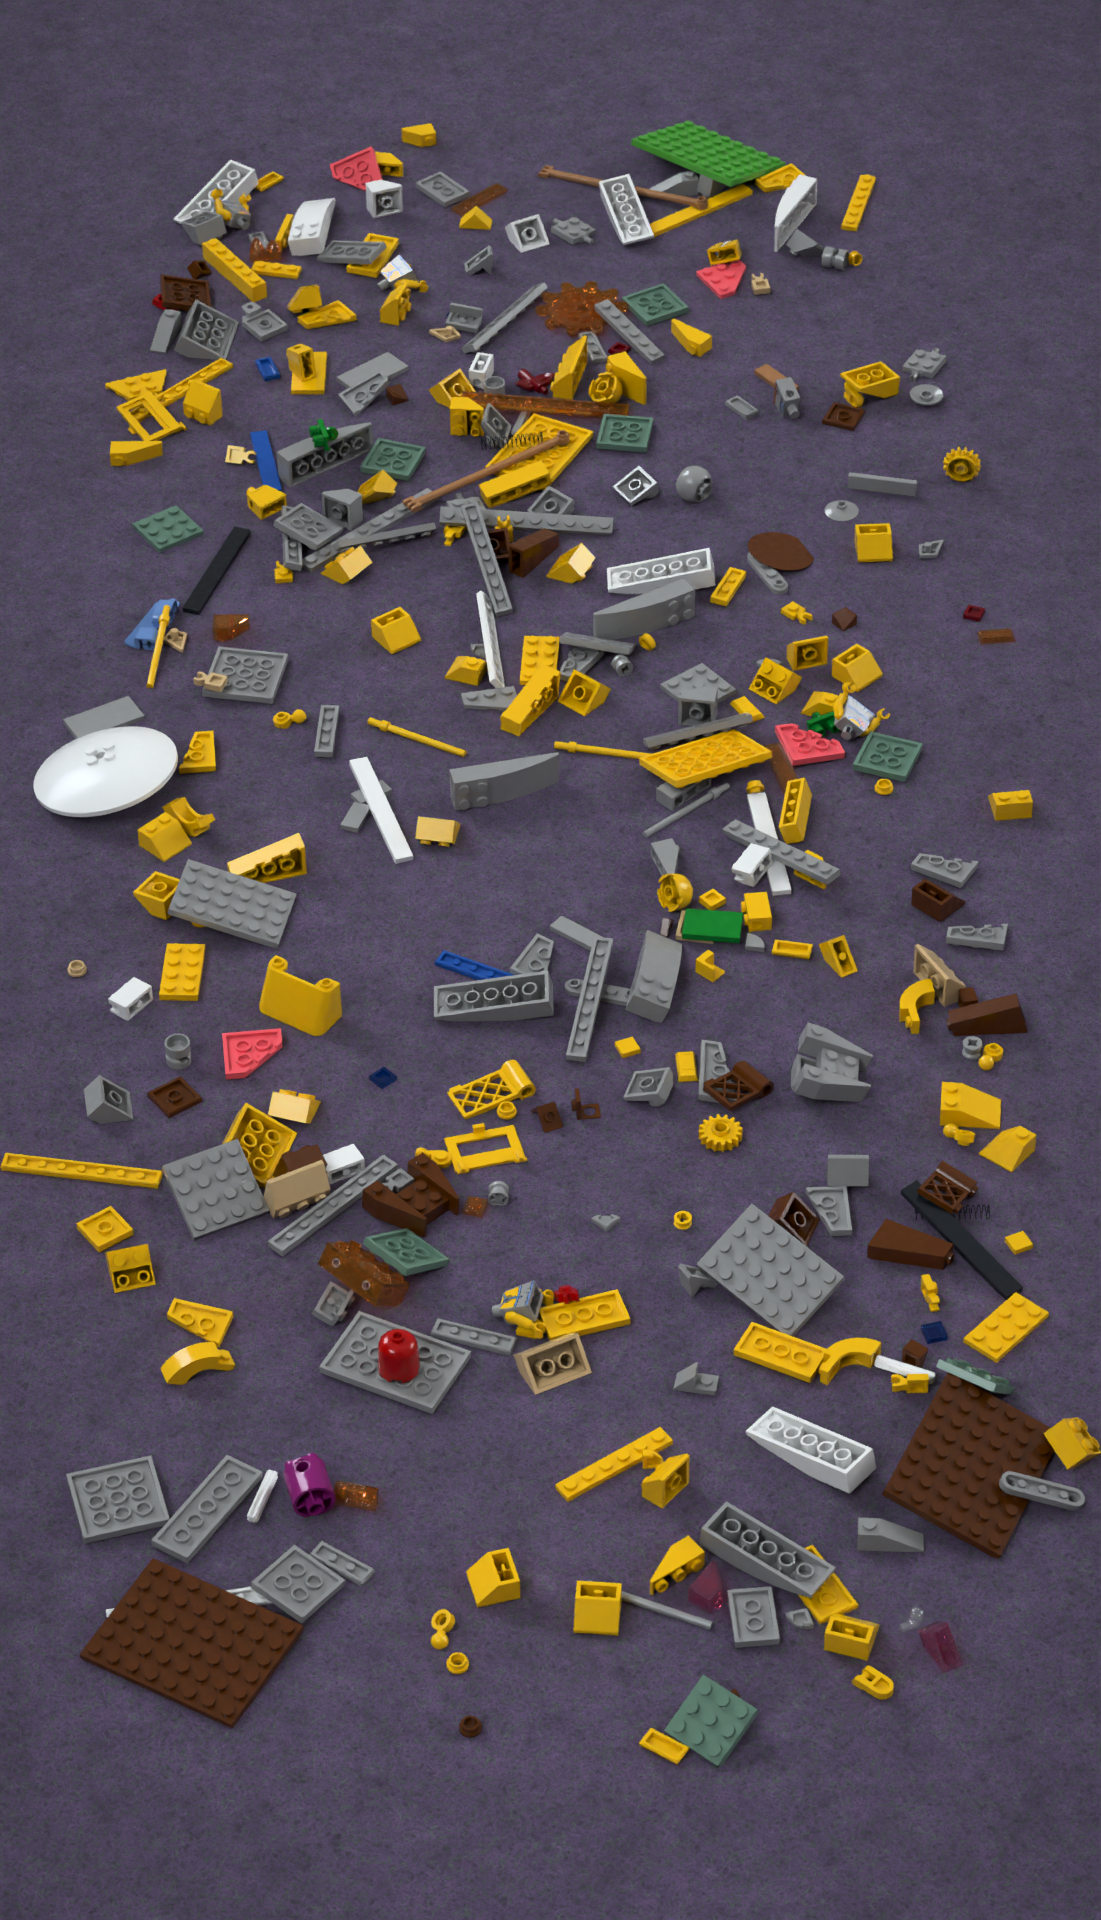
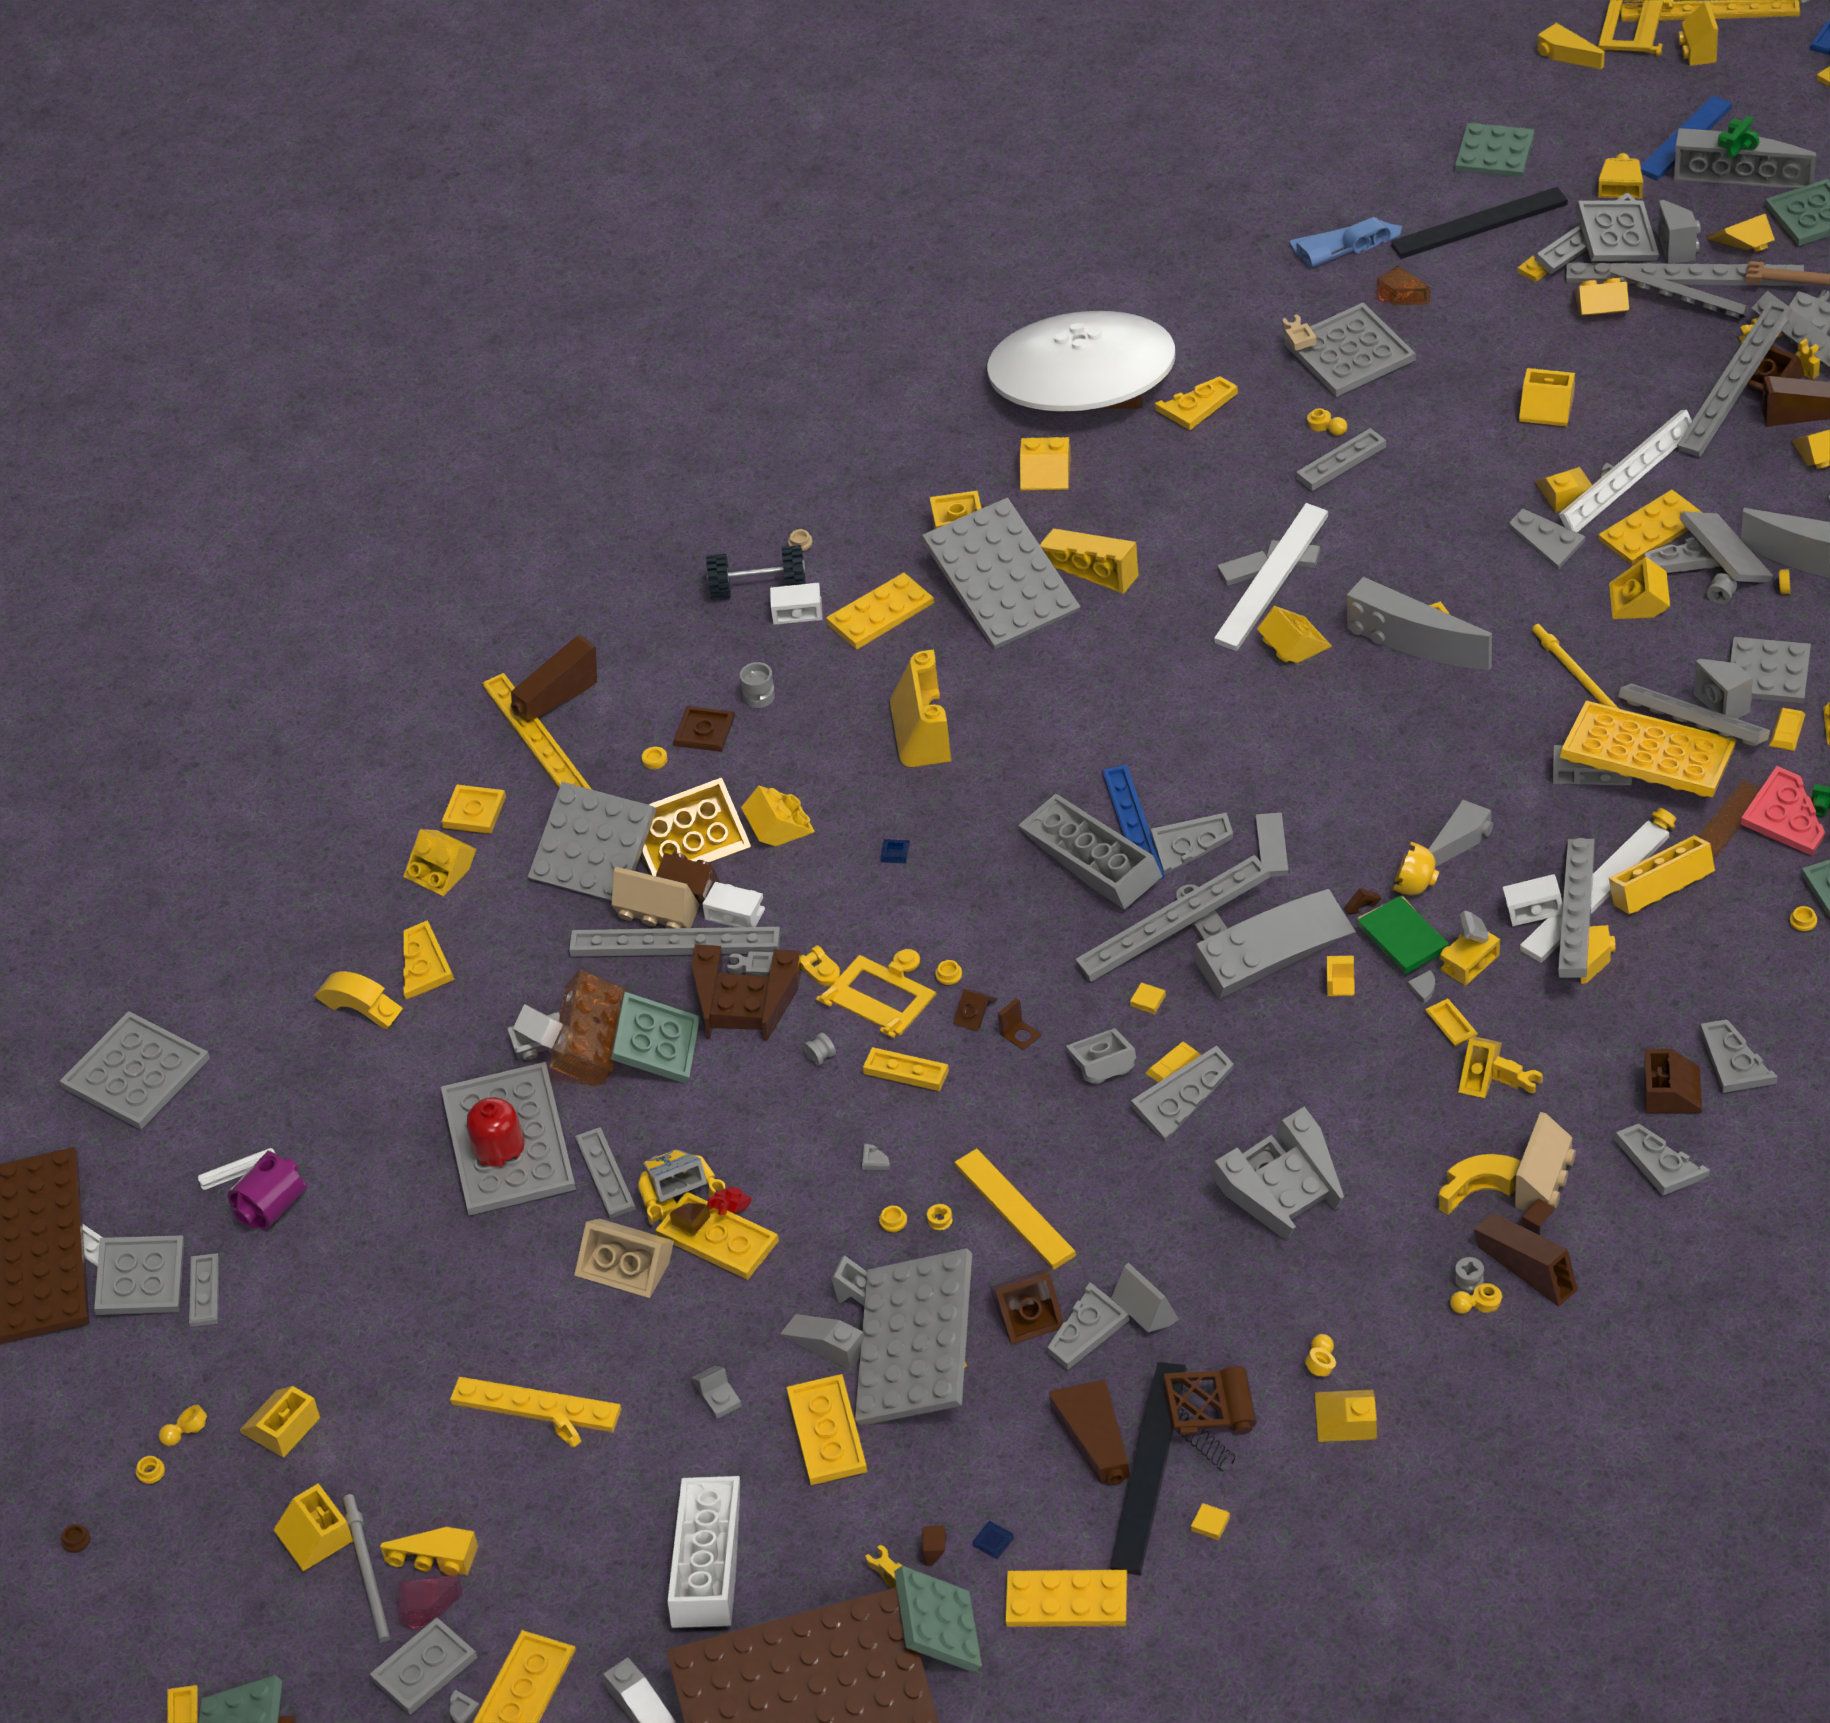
camera: 55 degrees right, 5 degrees up
(56, 1127) = (557, 680): none -> reddish brown slope
(67, 1014) = (719, 575): none -> black axle
(107, 1102) = (641, 690): light grey slope -> none
(110, 715) = (1169, 307): light grey tile -> none
(163, 622) = (1342, 242): yellow bar -> none
(169, 1131) = (654, 757): none -> yellow tile
(176, 639) = (1341, 270): tan piece -> none
(190, 820) = (1091, 458): yellow arch -> none
(207, 1509) = (181, 1140): light grey plate -> none
(237, 455) = (1665, 113): yellow plate -> none
(249, 1050) = (820, 731): coral plate -> none
(337, 1291) = (538, 1026): none -> white slope
(356, 1495) = (296, 1232): clear orange tile -> none
(386, 726) = (1404, 493): yellow bar -> none
(473, 1119) = (907, 958): none -> yellow plate
(475, 1206) = (787, 1045): clear orange plate -> none
(512, 1080) = (992, 950): yellow piece -> none
(532, 700) = (1568, 563): yellow wedge -> none
(557, 1169) = (905, 1069): none -> yellow plate
(564, 1314) = (690, 1217): none -> reddish brown slope
(661, 1239) = (893, 1219): none -> yellow plate
(666, 1480) = (540, 1462): yellow slope -> none
(712, 900) = (1447, 908): yellow plate -> none
(713, 793) = (1616, 795): light grey bar -> none
(713, 1188) = (1015, 1209): none -> yellow tile
(719, 1312) = (826, 1338): none -> light grey slope
(720, 1133) = (1097, 1158): yellow gear -> none
(748, 1080) = (1203, 1127): reddish brown piece -> none
(752, 891) = (1473, 927): none -> light grey piece
(763, 1552) = (512, 1611): light grey slope -> none
(848, 1352) = (873, 1483): yellow arch -> none
(860, 948) = (1511, 1074): none -> yellow plate
(901, 1367) = (908, 1543): white axle -> none
(929, 1291) = (1046, 1491): yellow plate -> none
(968, 1107) = (1369, 1334): yellow slope -> none

